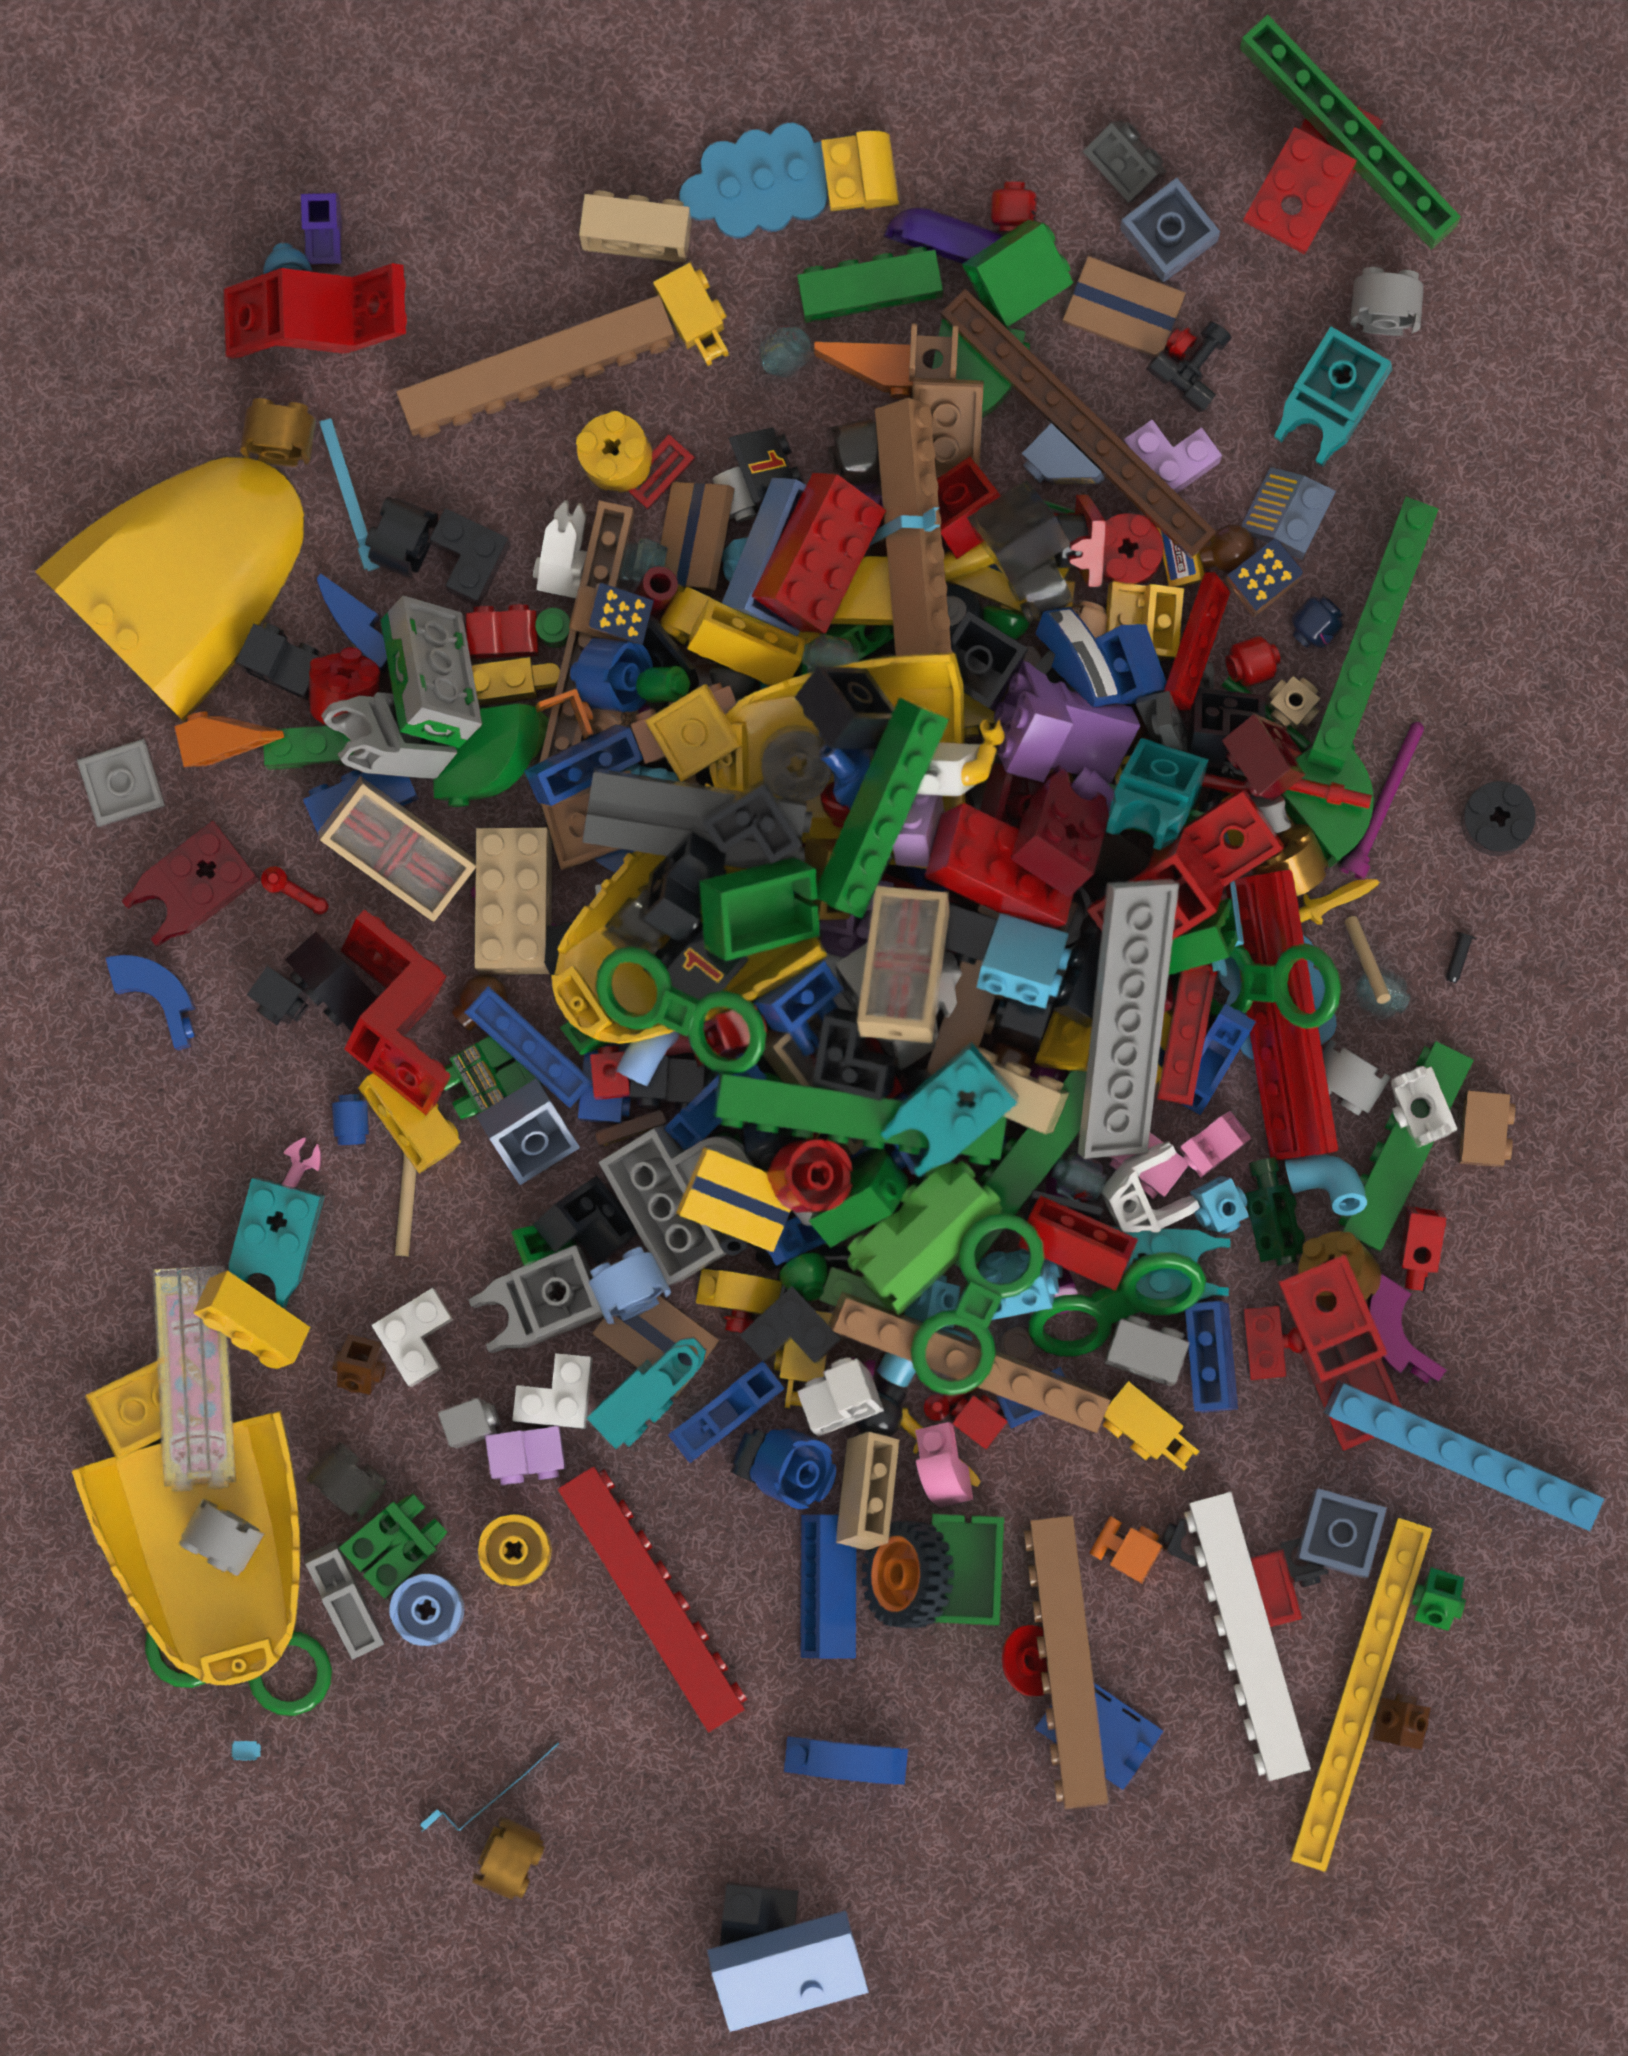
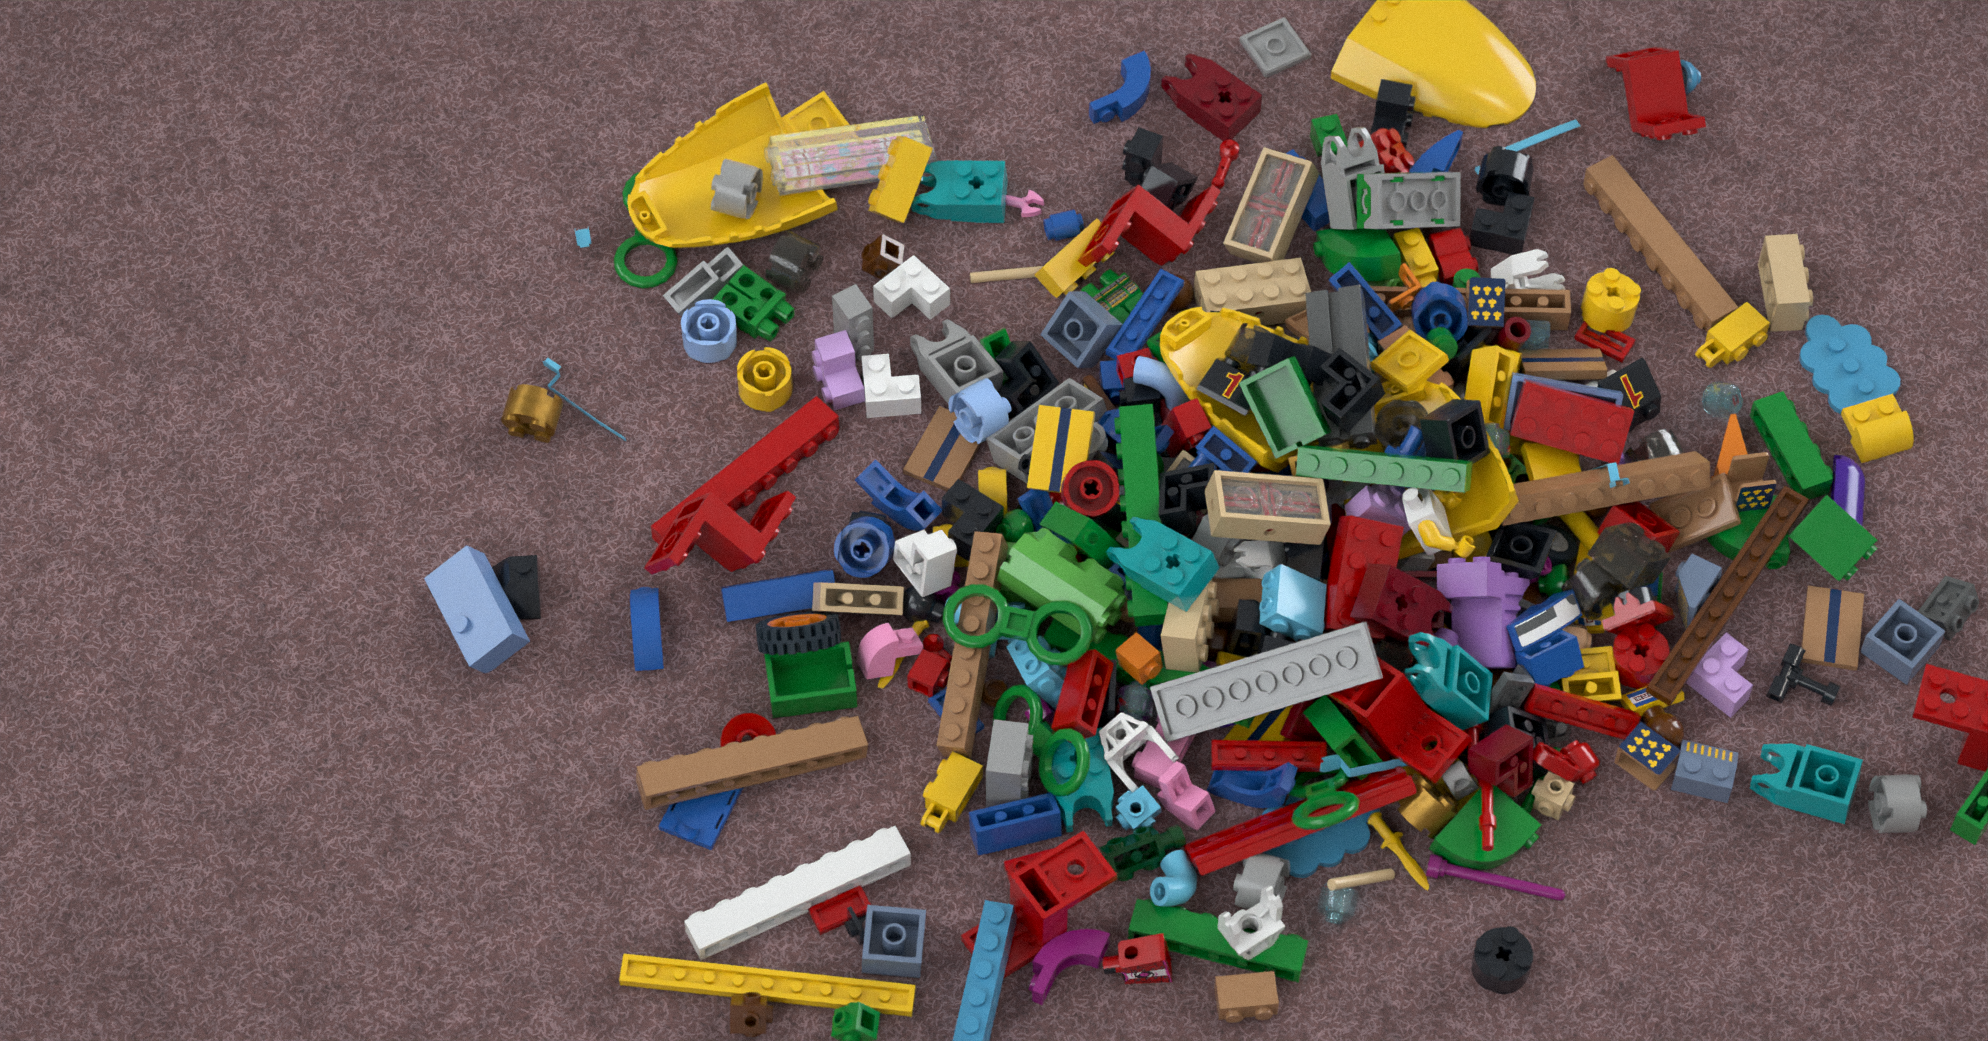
camera: 70 degrees right, 25 degrees down
(215, 738) = (1321, 90): orange slope -> none
(278, 432) = (1558, 89): pearl gold brick -> none
(322, 227) = (1726, 92): dark purple brick -> none
(645, 1394) = (899, 435): teal brick -> none
(680, 1010) = (1193, 374): green bar -> none
(733, 1675) = (721, 532): none -> red bracket
(1013, 206) = (1888, 533): red head -> none
(1040, 1161) = (1139, 658): none -> orange brick
(1133, 1554) = (848, 796): orange brick -> none
(1172, 1537) = (865, 825): black bracket -> none
(1179, 343) = (1818, 667): red plate -> none
(1266, 691) = (1555, 761): none -> red beam
(1317, 622) = (1623, 803): dark blue head -> none
(1336, 1244) = (1109, 906): pearl gold brick -> none
(1372, 635) = (1624, 835): green brick -> none
(1458, 957) = (1381, 957): black piece -> none

